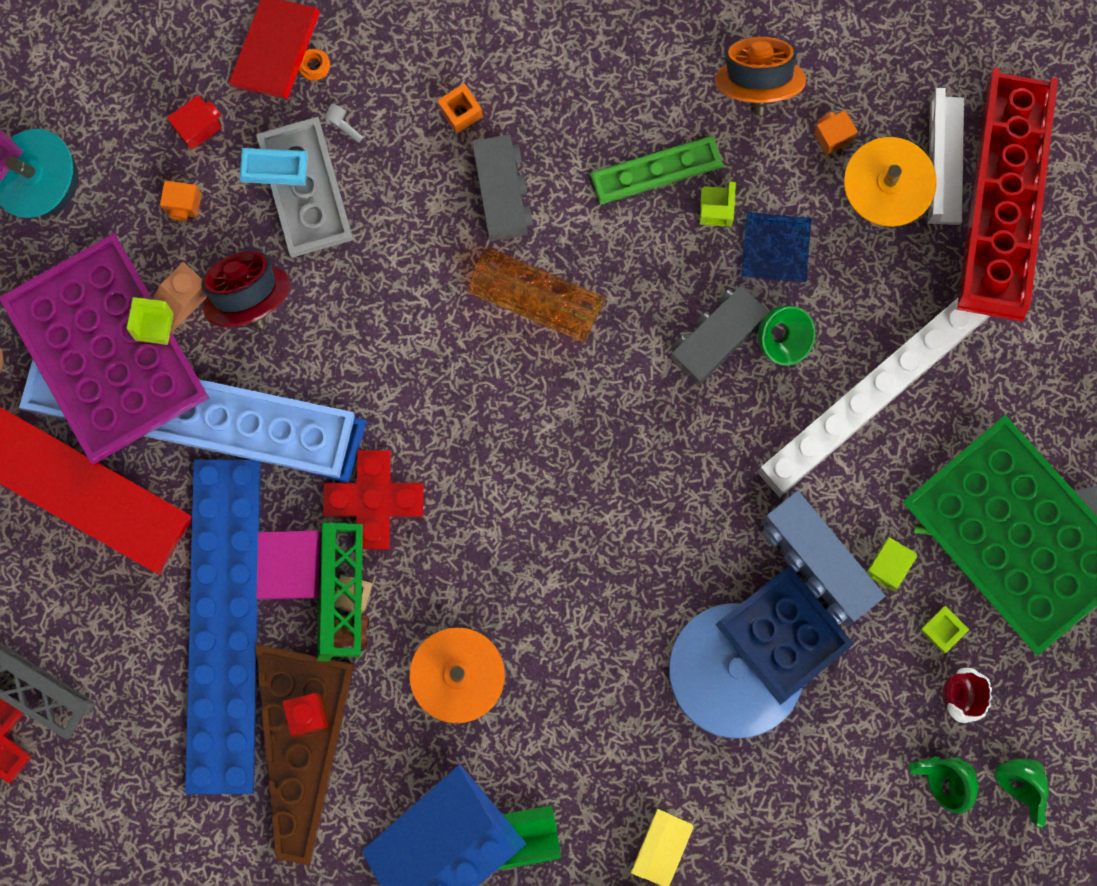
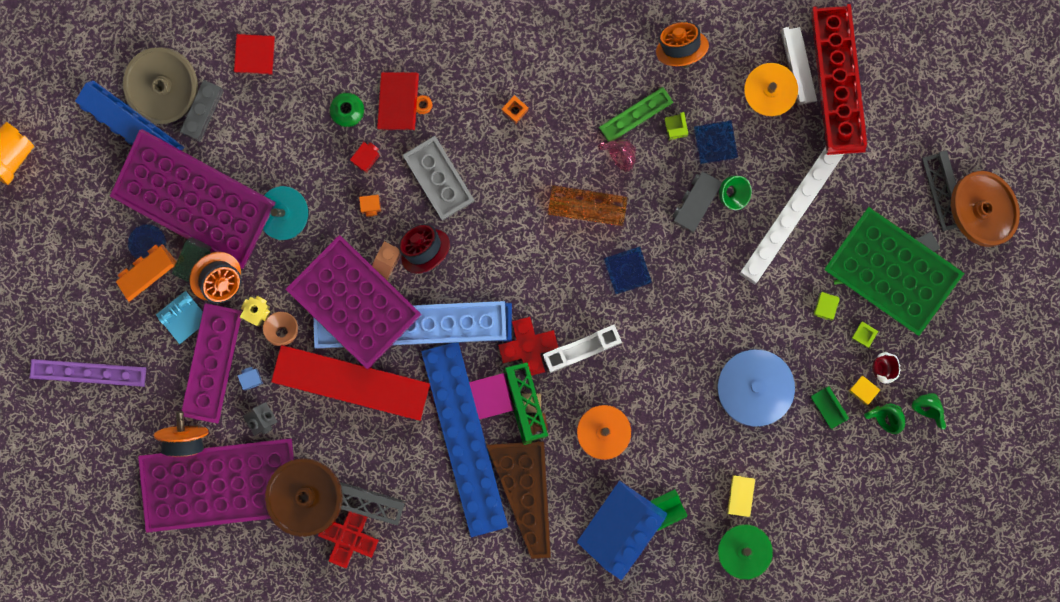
camera: 15 degrees left, 5 degrees up
(150, 320) = (378, 281): lime panel -> none
(191, 55) = (349, 119): none -> green piece
(273, 166) = (418, 171): medium azure tile -> none
(305, 714) = (527, 476): red brick -> none
(335, 115) = (444, 132): light grey hand -> none
(453, 528) = (582, 348): none -> white arch
(502, 187) = (551, 149): dark grey brick -> none
(573, 418) = (627, 270): none -> clear blue tile
(618, 213) = (626, 151): none -> clear pink hat
(784, 635) = (778, 361): dark blue plate -> none
(821, 559) = (787, 314): sand blue brick -> none
(835, 131) = (731, 66): orange plate -> none
(853, 737) = (829, 407): none -> green panel
(920, 724) = (864, 390): none -> yellow panel

